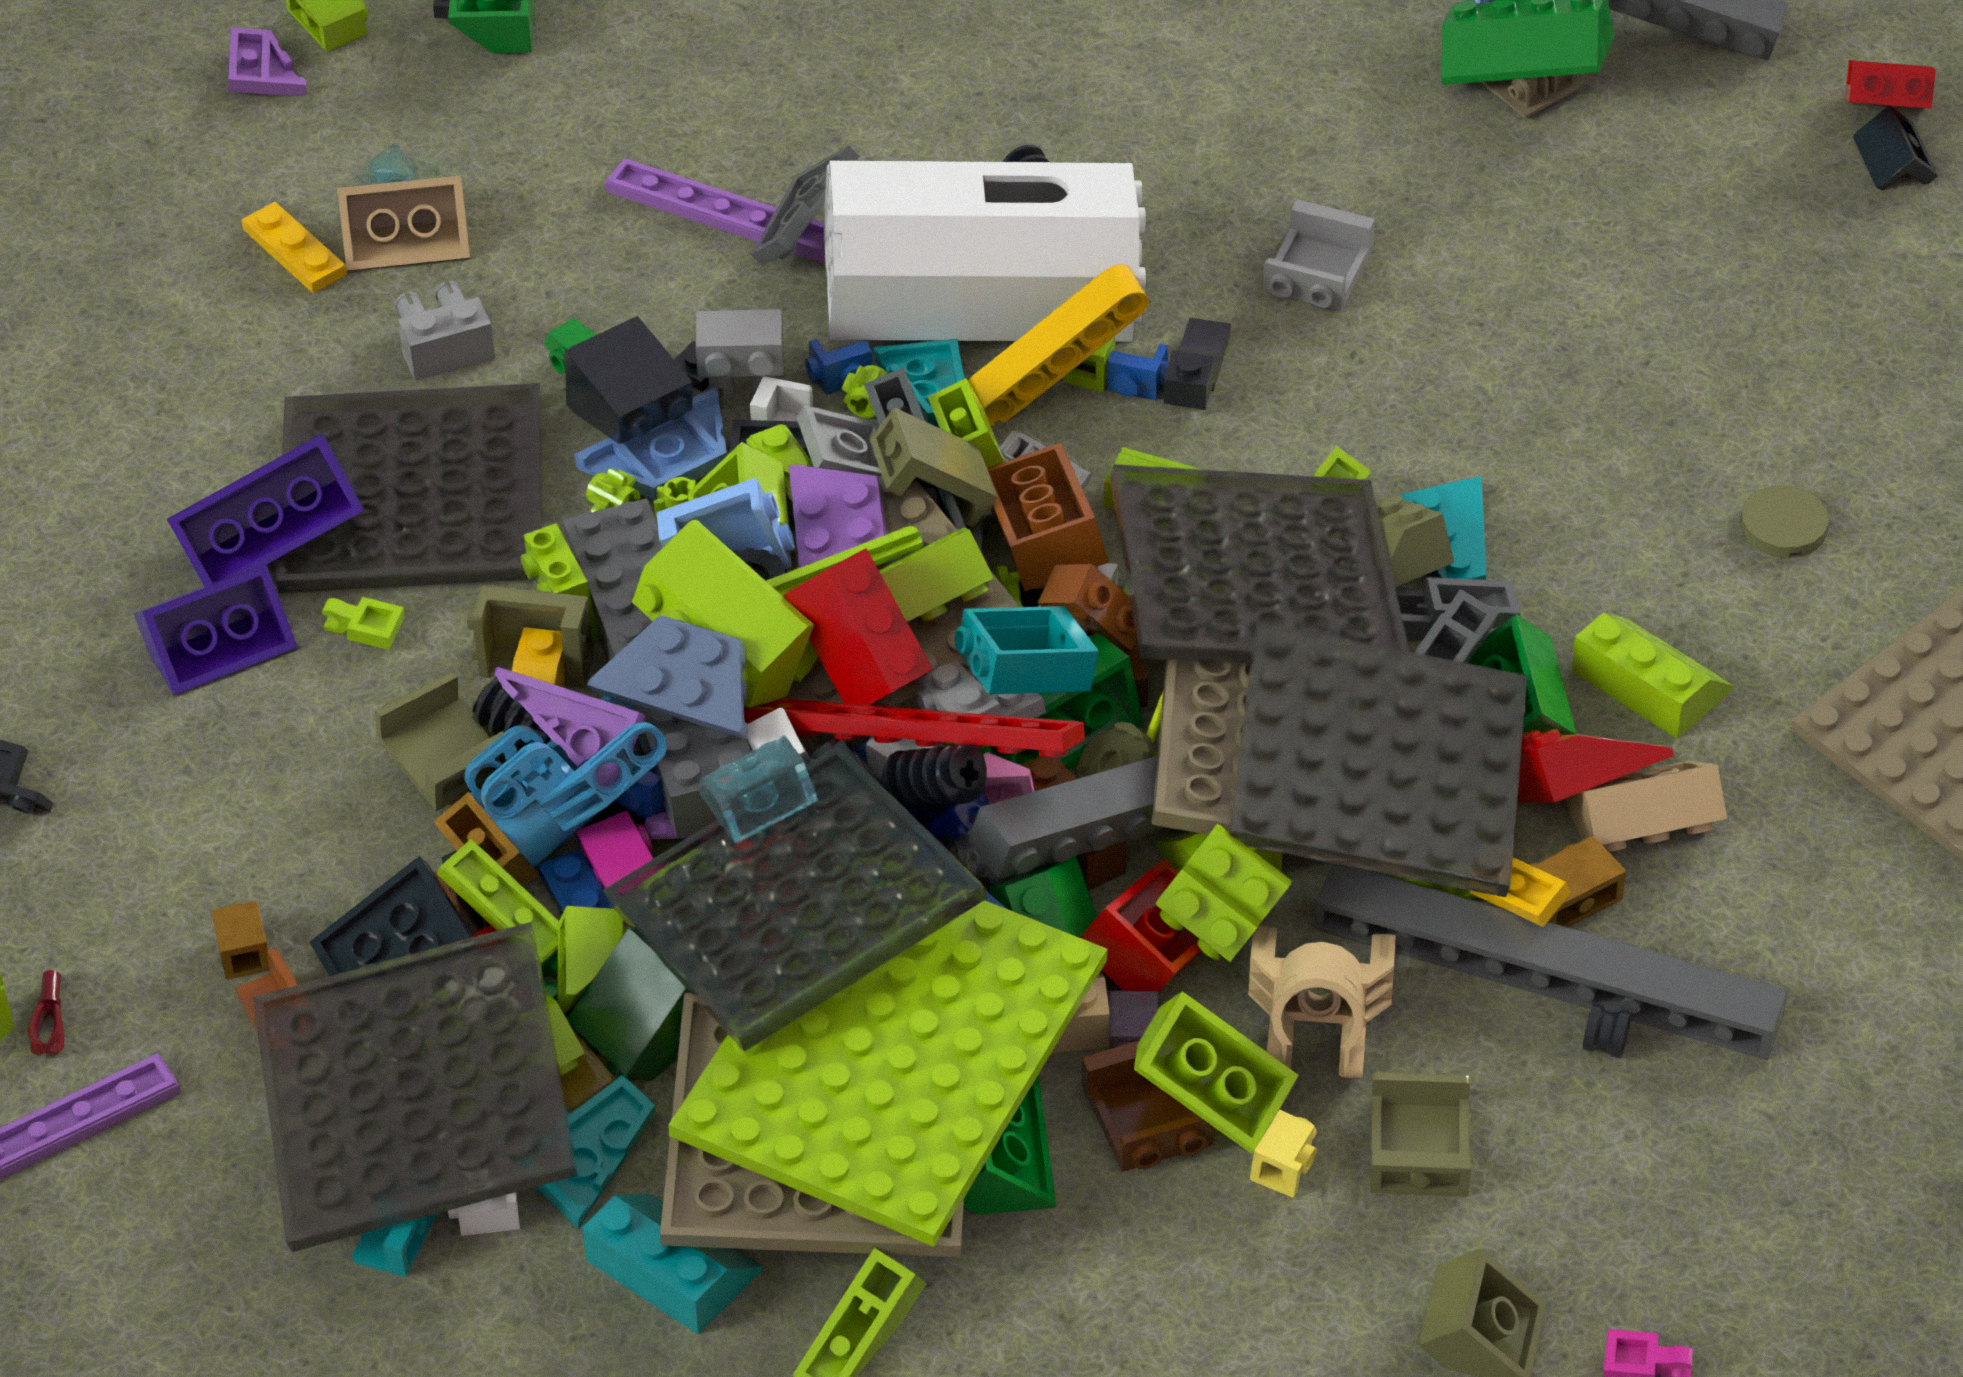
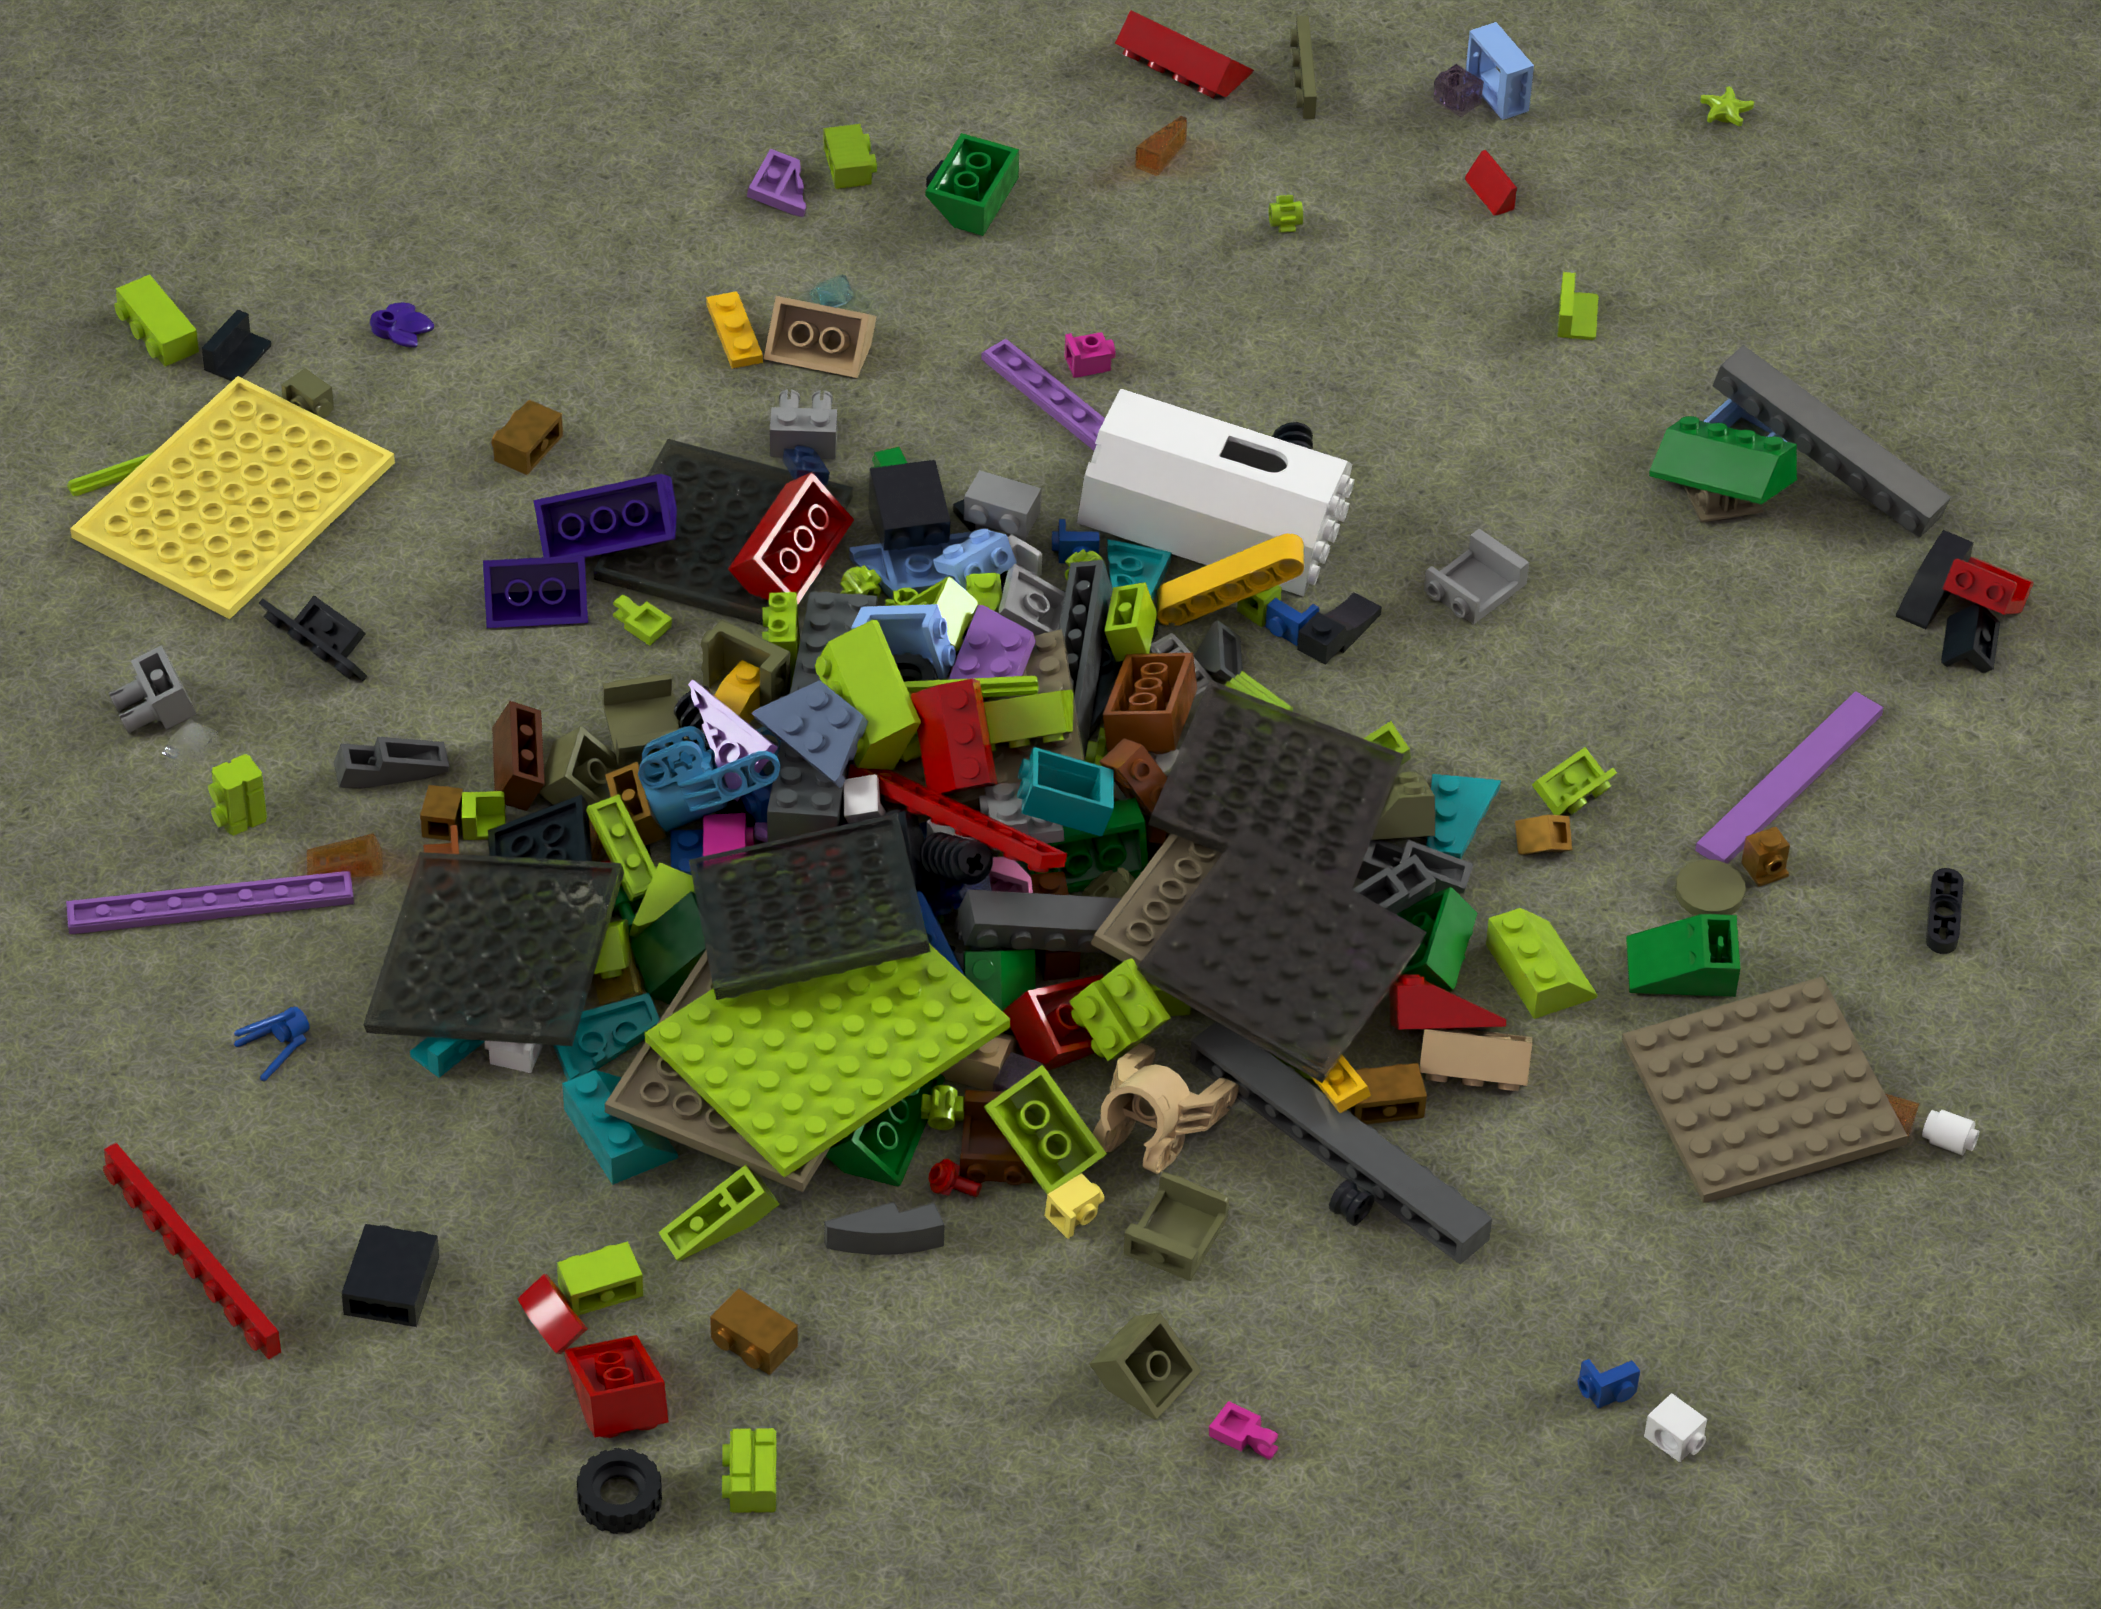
camera: 20 degrees right, 0 degrees up
(47, 1004) = (294, 812): dark red piece -> none
(108, 449) = (527, 437): none -> pearl gold brick
(139, 900) = (389, 762): none -> dark grey slope
(153, 1019) = (367, 859): none -> clear orange slope
(178, 1282) = (285, 1026): none -> blue plant
(291, 923) = (481, 813): none -> lime panel
(303, 836) = (518, 755): none -> reddish brown brick
(388, 829) = (578, 767): none -> olive slope
(471, 375) = (803, 461): none -> dark blue plate
(506, 466) = (792, 540): none -> red slope
(731, 145) = (1088, 354): none -> dark pink brick
(737, 413) = (982, 553): none -> light blue bracket
(758, 789) = (821, 824): clear light blue slope -> none
(797, 209) = (1082, 434): dark grey wing -> none
(914, 448) = (1084, 634): olive panel -> none
(1061, 1089) = (942, 1107): none -> lime gear
(1077, 1268) = (886, 1230): none -> dark grey slope
(1079, 436) = (1220, 652): none -> dark grey slope
(1109, 1175) = (945, 1177): none -> red plate
(1565, 452) = (1572, 782): none -> lime bracket
(1567, 522) = (1543, 834): none -> pearl gold panel
(1794, 369) = (1789, 778): none -> medium lavender tile
(1814, 606) = (1686, 957): none -> green slope
(1820, 98) = (1925, 593): none -> black slope
(1829, 462) = (1766, 856): none -> pearl gold brick

